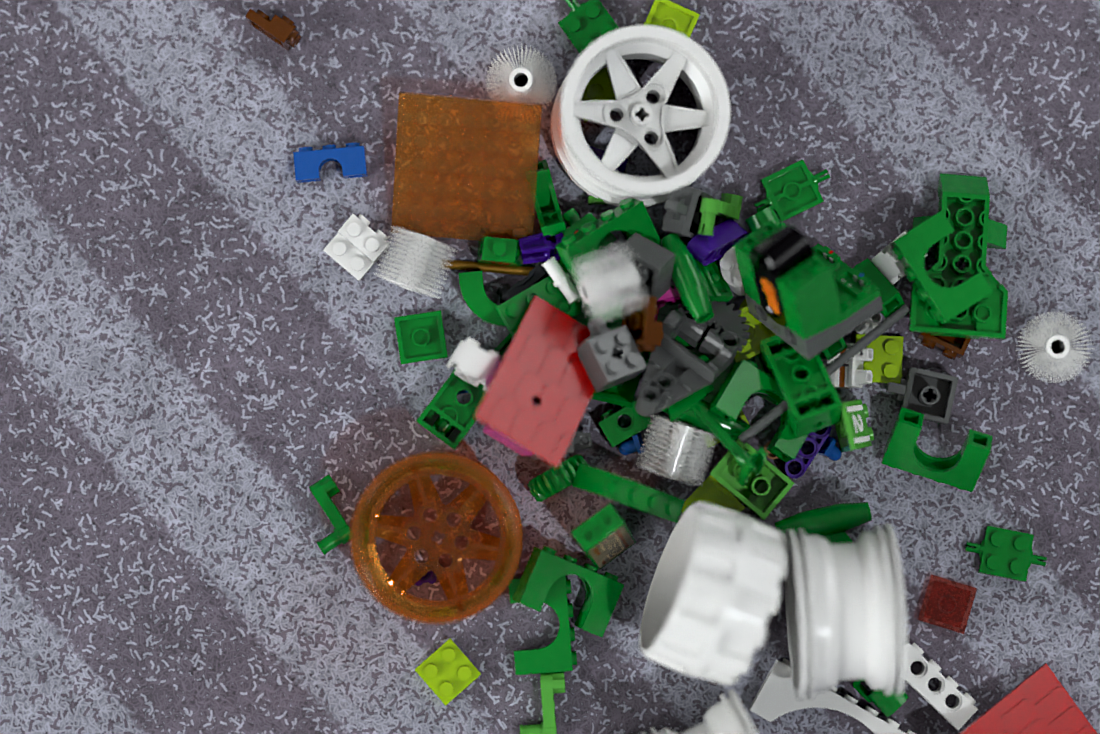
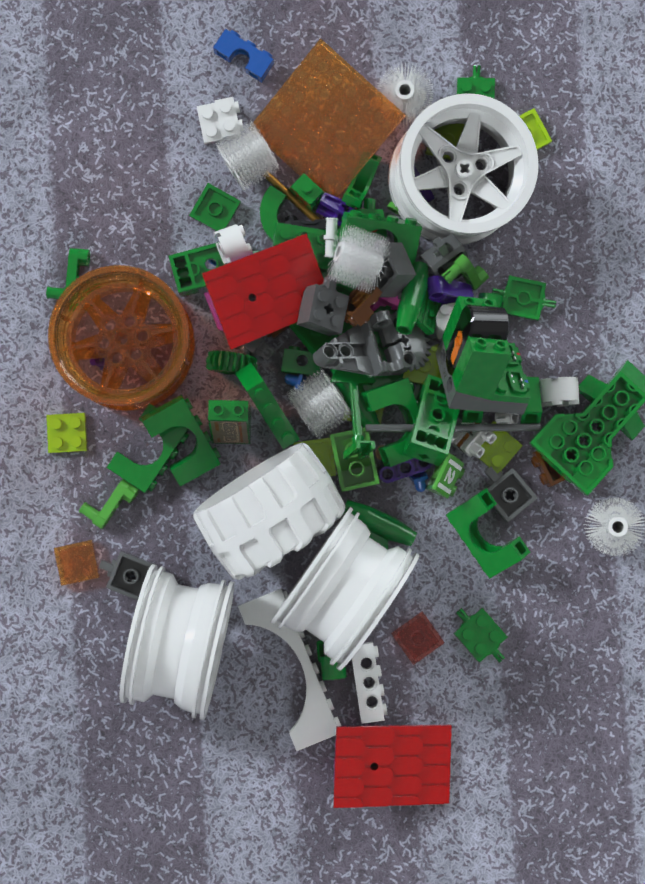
camera: 35 degrees right, 0 degrees up
(943, 301) = (566, 440): green arch -> none

